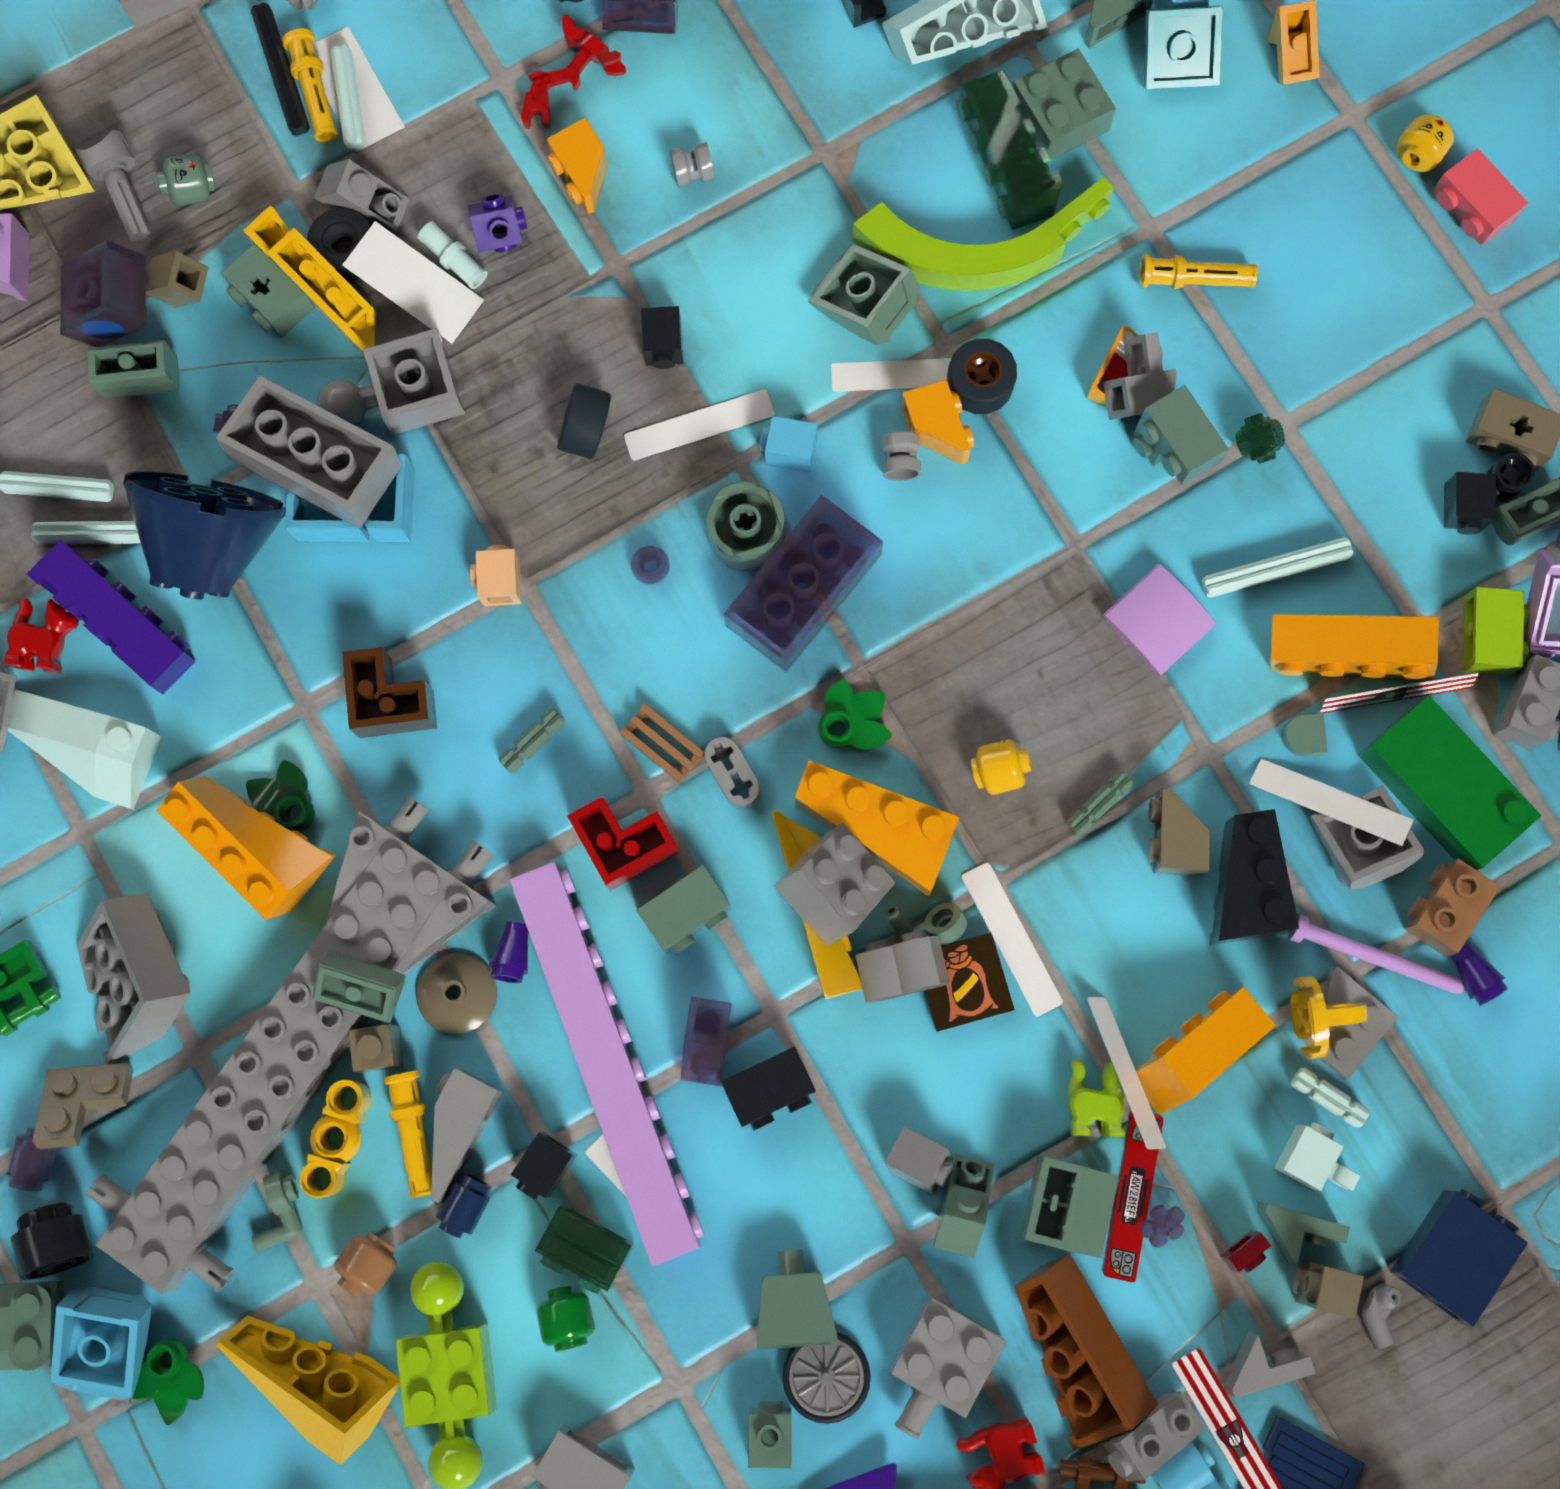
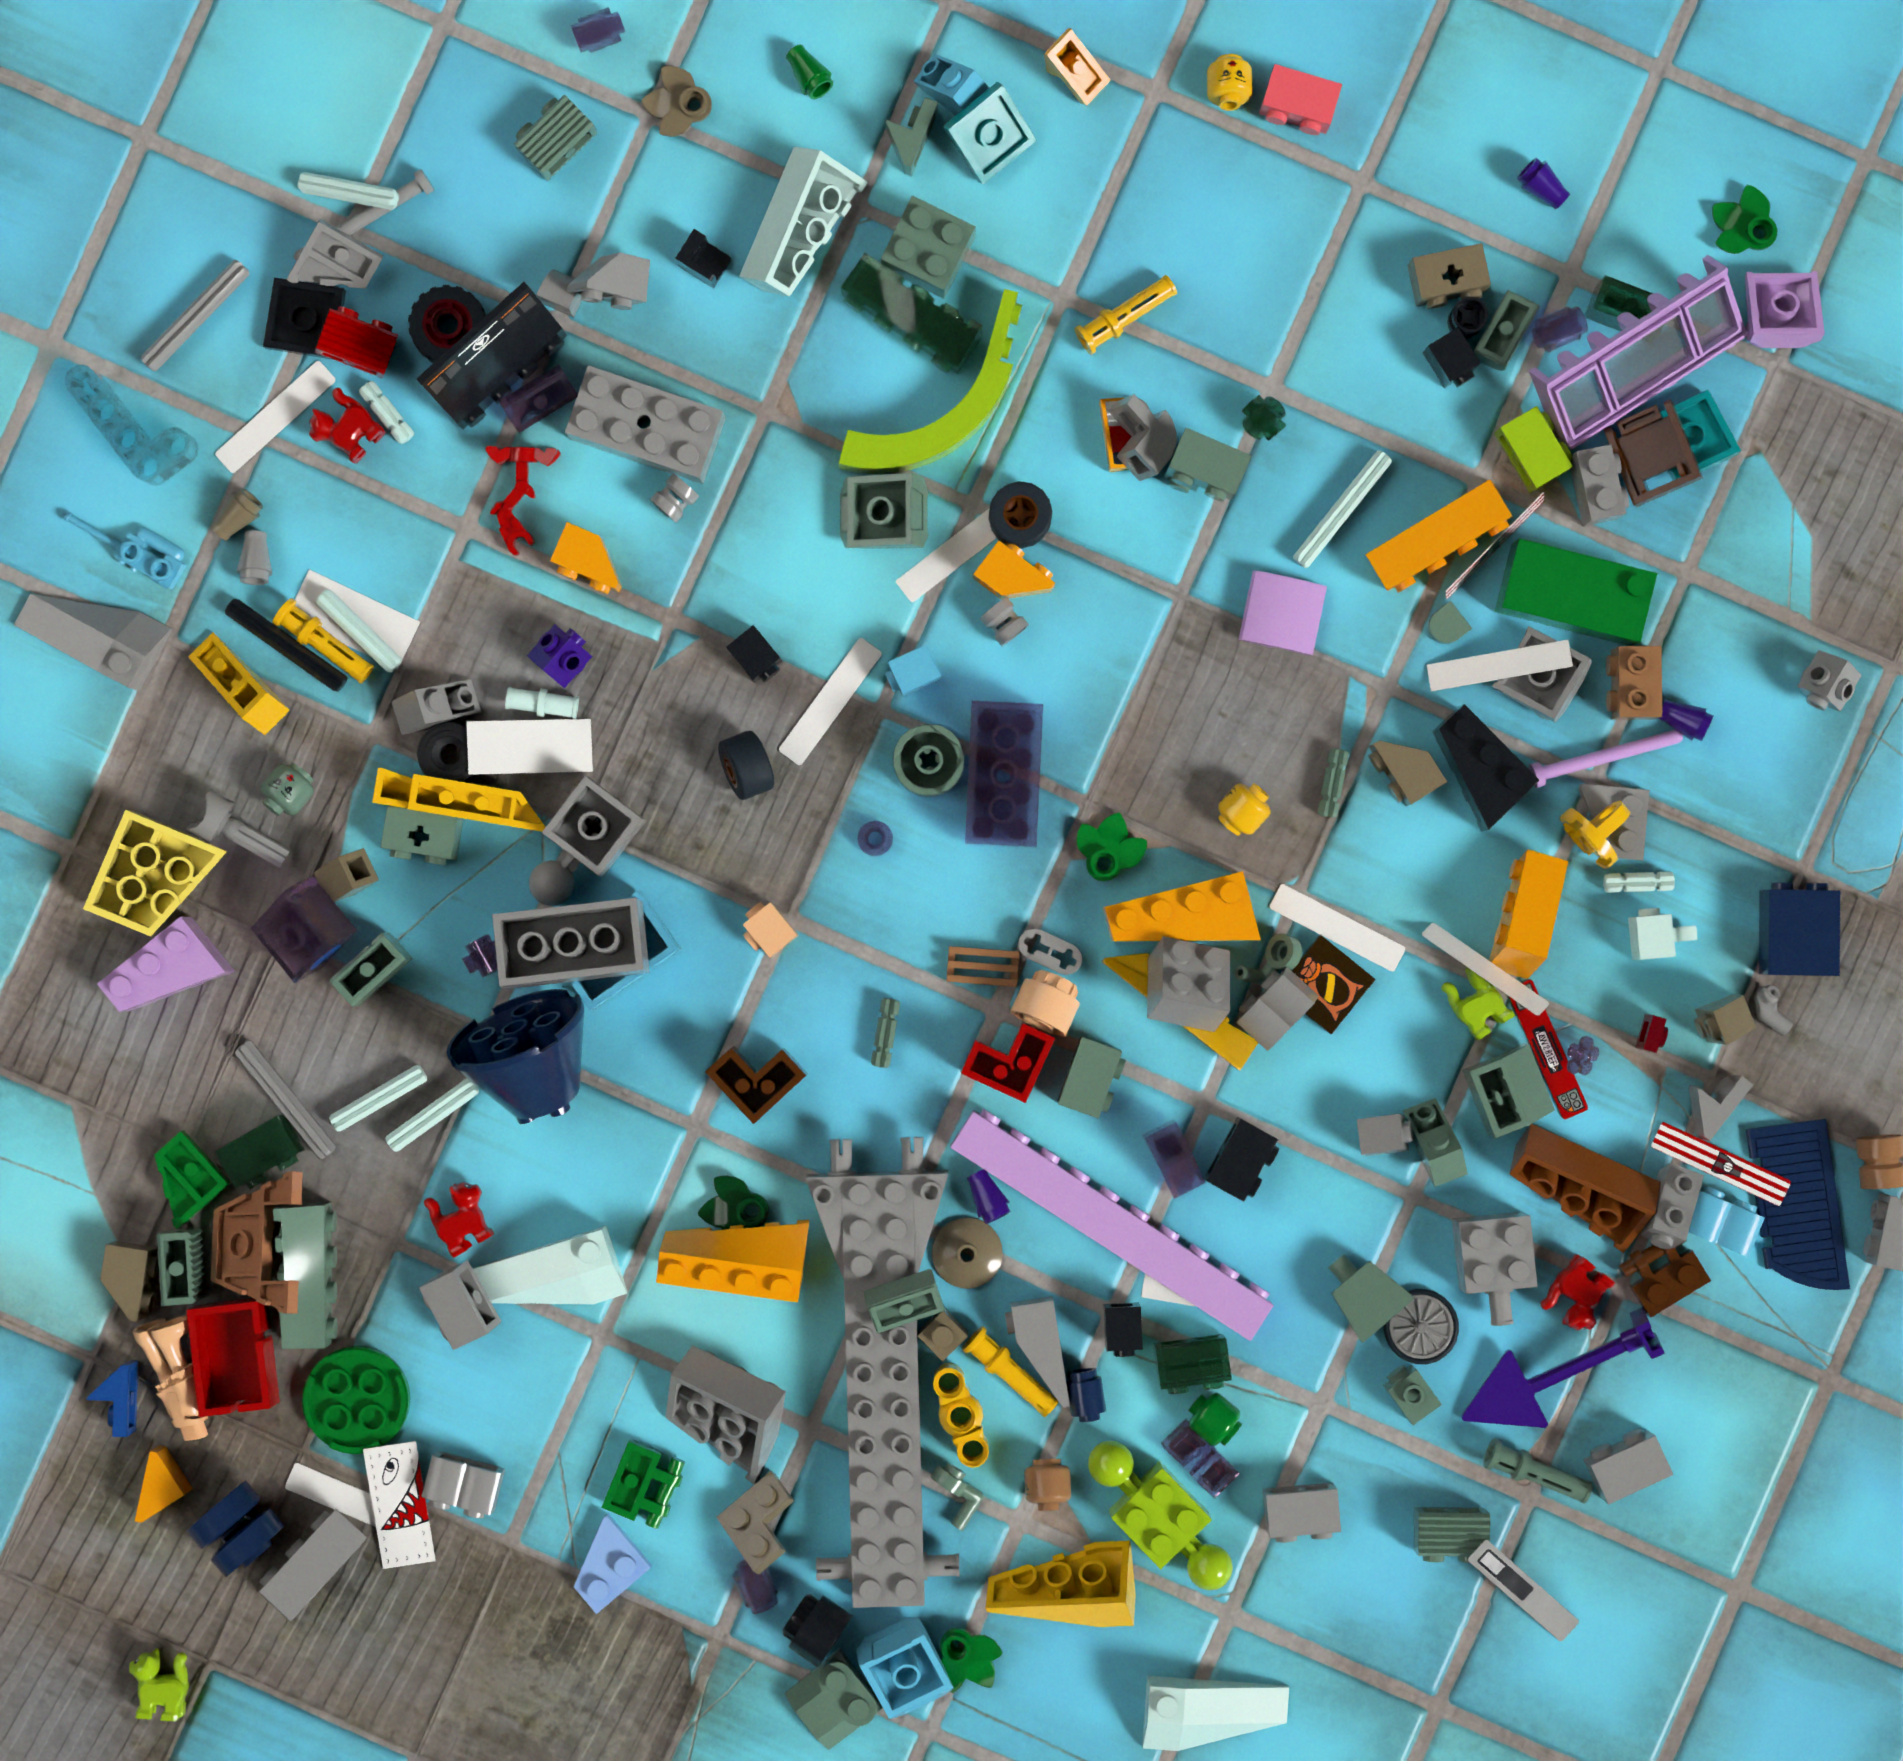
camera: 45 degrees left, 10 degrees up
(112, 616) = (509, 1165): dark purple wedge -> none
(215, 73) = (238, 684): none -> yellow slope
(525, 1354) = (1200, 1459): none -> slope
(694, 813) = (1047, 1003): none -> light nougat piece
(712, 89) = (680, 431): none -> light grey brick
(1289, 1227) = (1670, 993): sand green slope -> none

